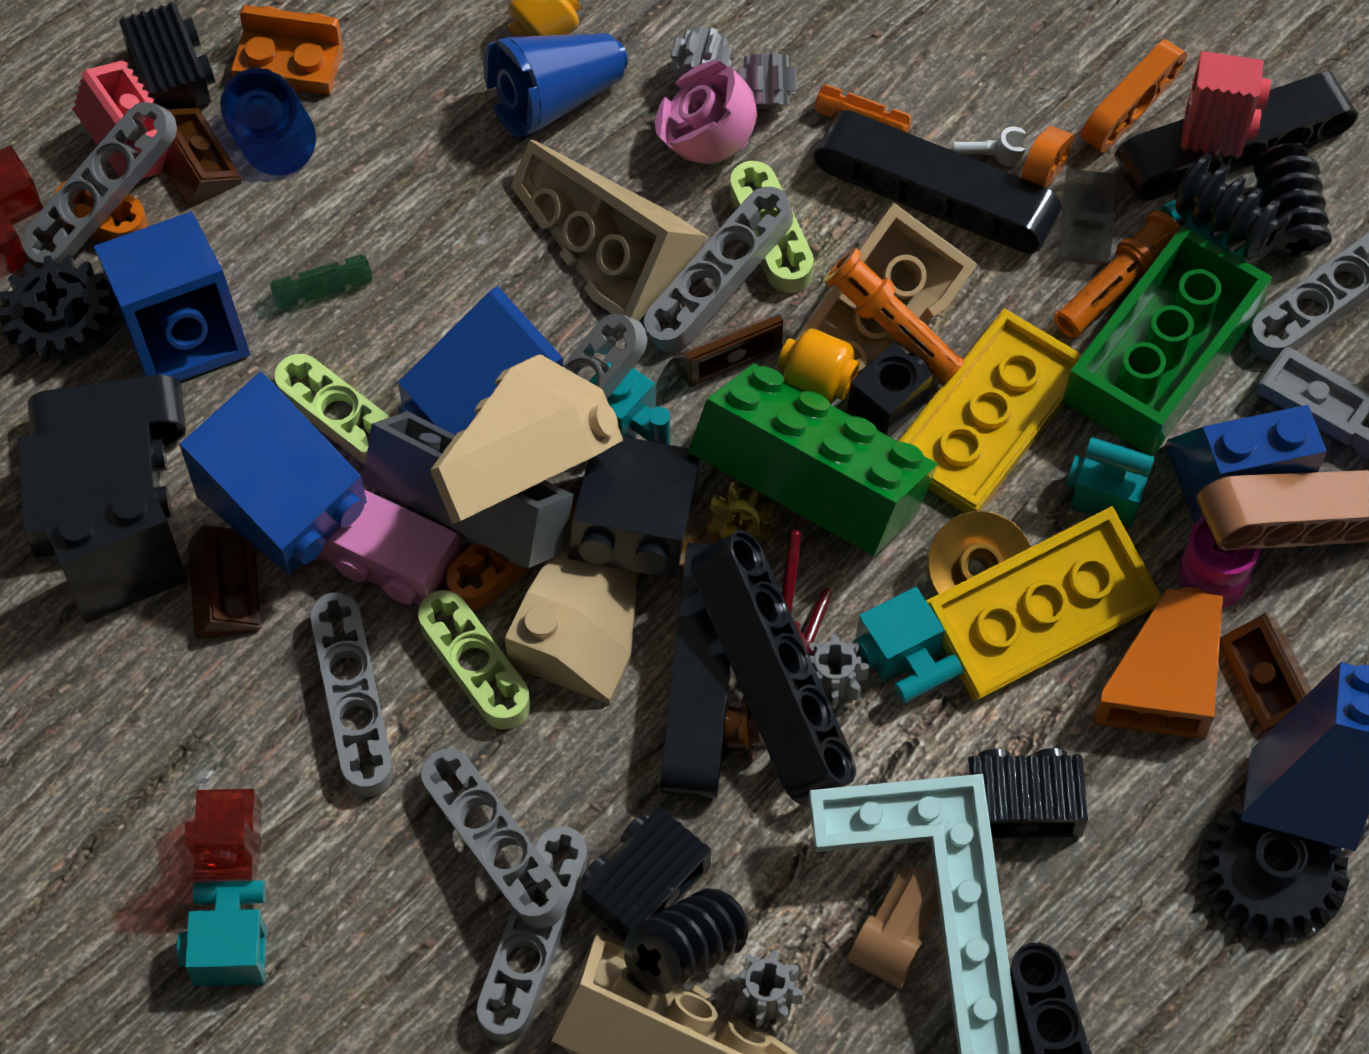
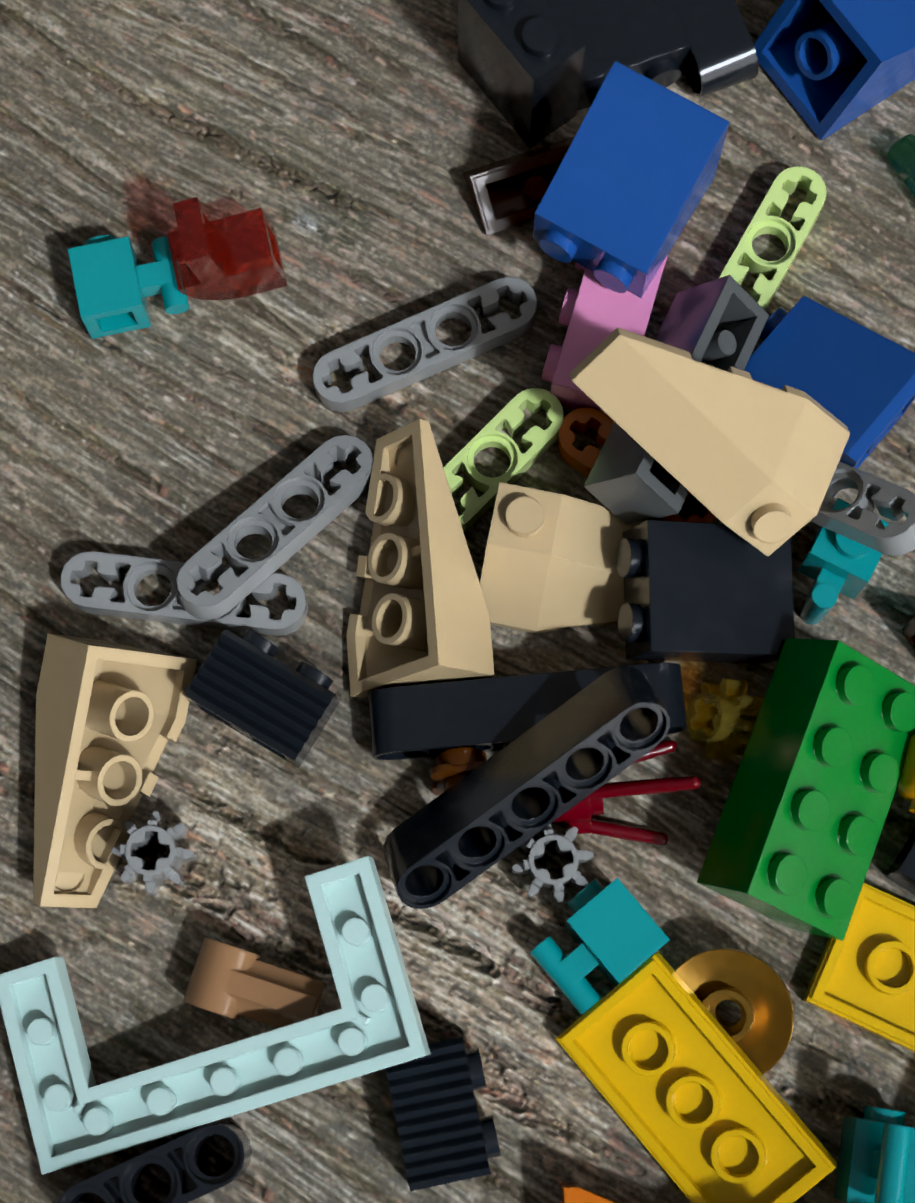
camera: 80 degrees right, 15 degrees up
(577, 733) = (421, 592): none -> tan wedge
(685, 940) = (182, 751): black piece -> none

